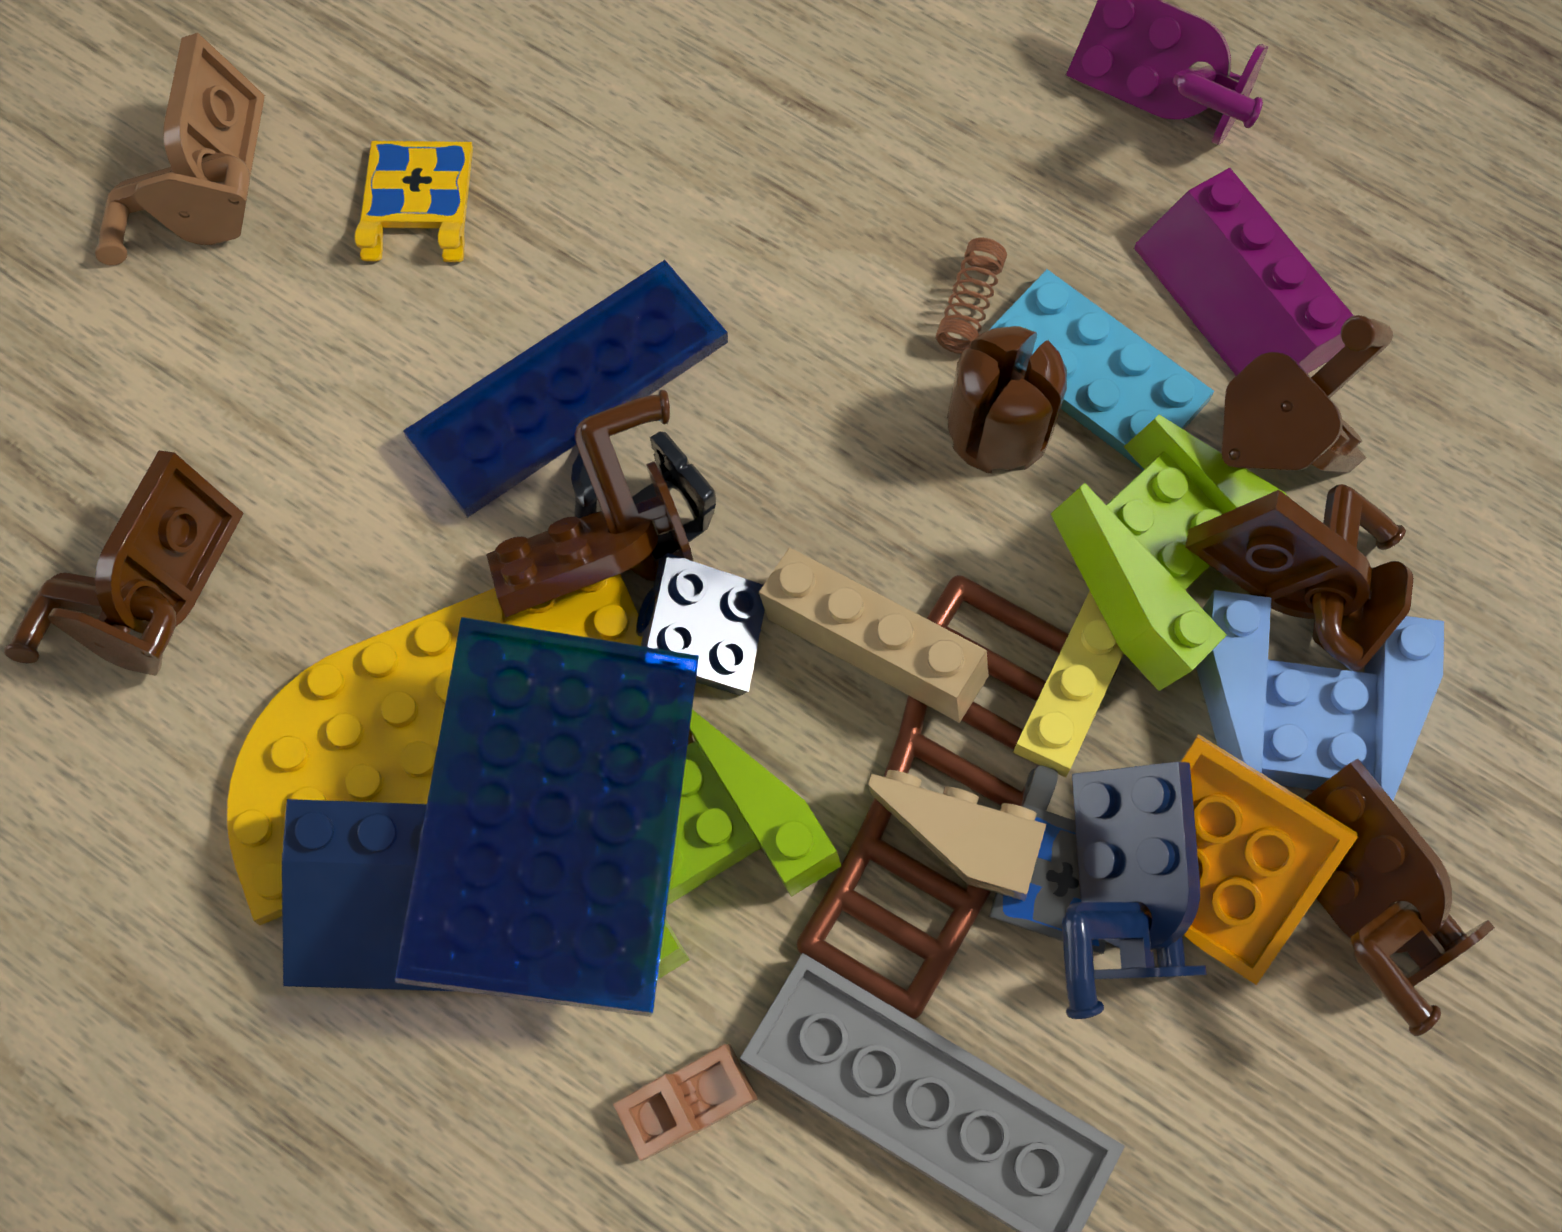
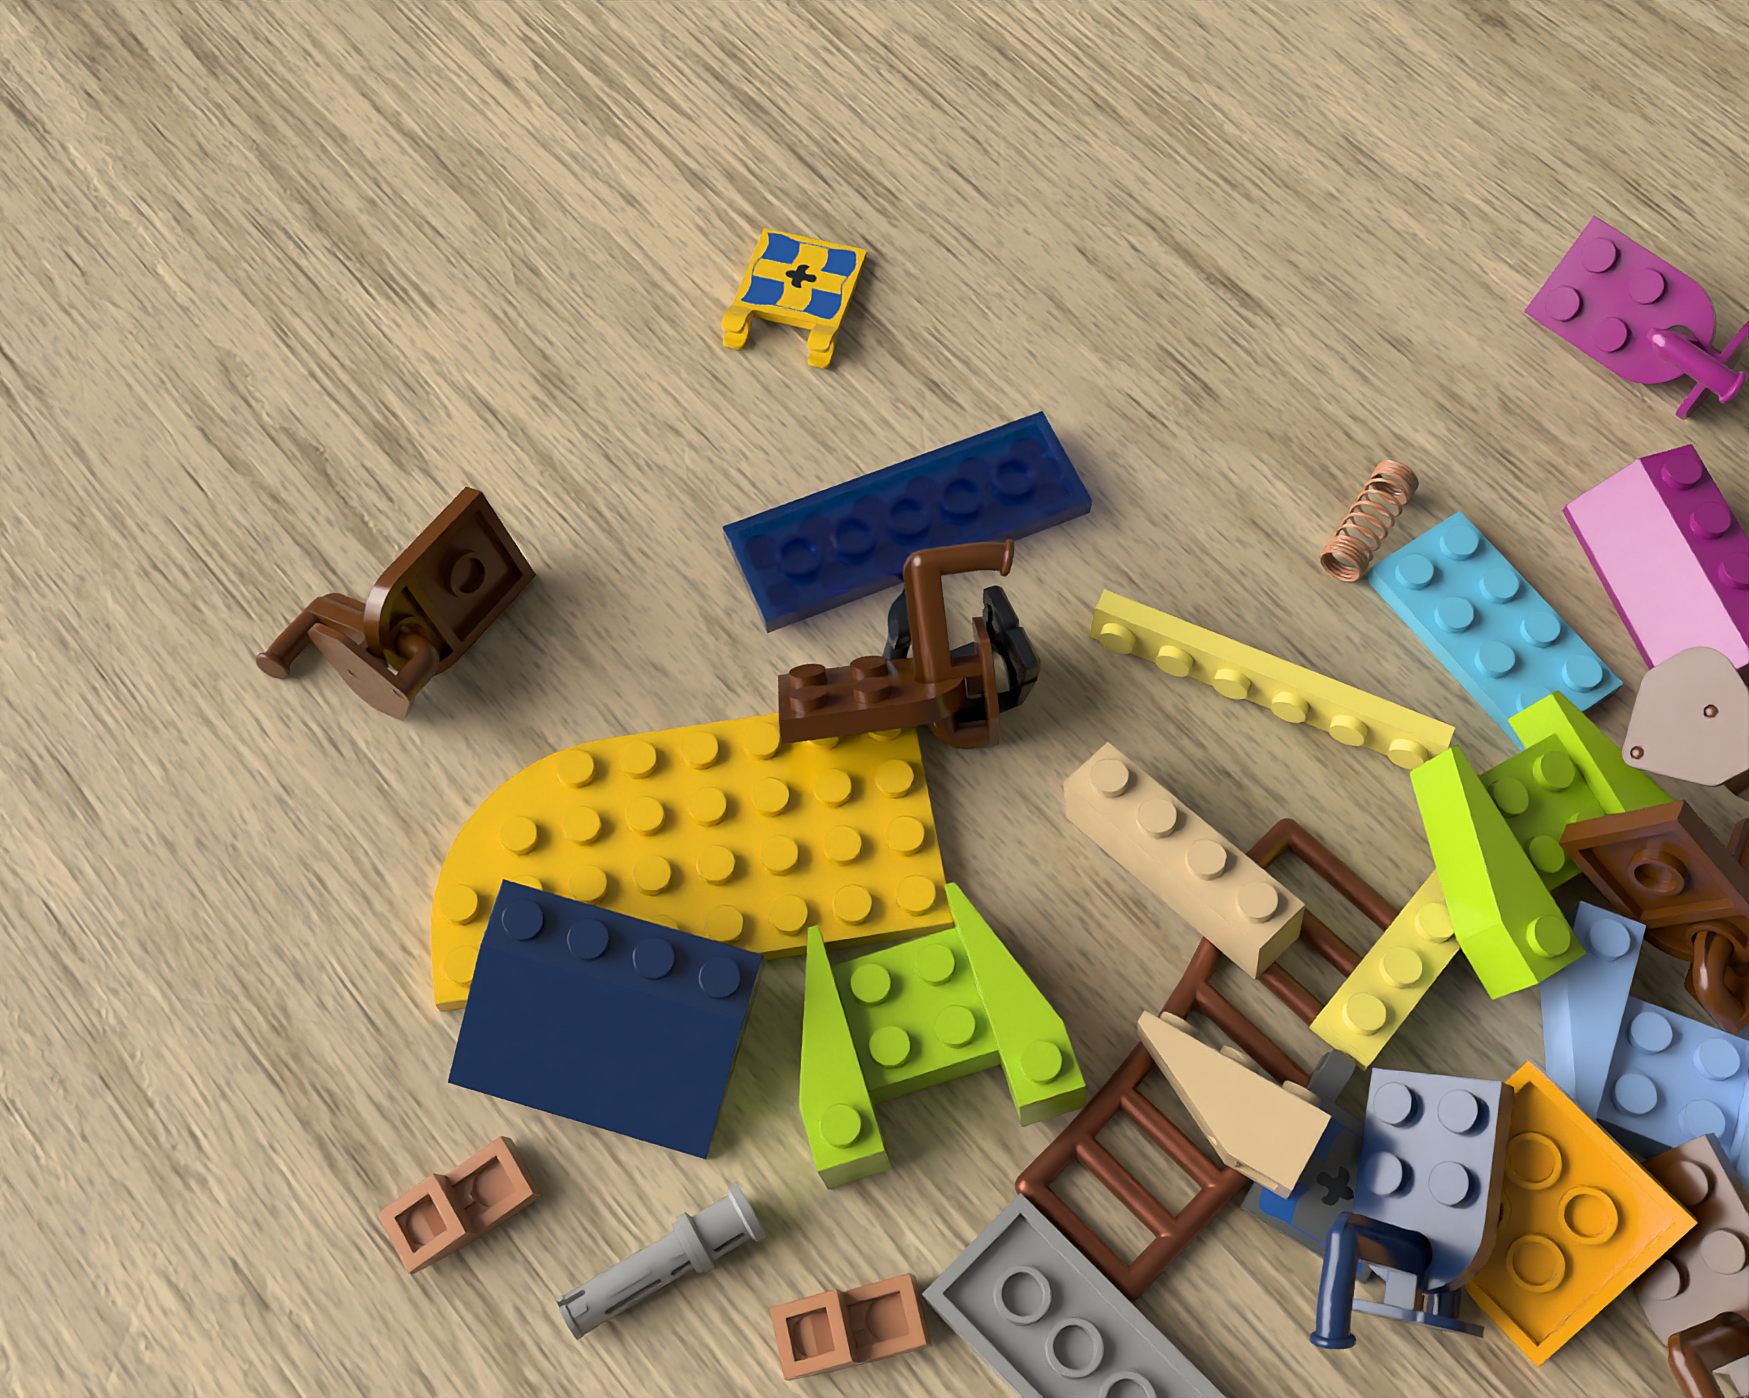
camera: 15 degrees right, 5 degrees down
(211, 152) = (596, 202): medium nougat plate -> none
(322, 1089) = (459, 1206): none -> nougat slope
(533, 1069) = (690, 1246): none -> light grey pin
(551, 820) = (779, 974): clear blue plate -> none
(707, 616) = (991, 804): plate -> none
(922, 460) = (1277, 684): none -> light yellow plate
(1006, 399) = (1389, 630): reddish brown cylinder -> none

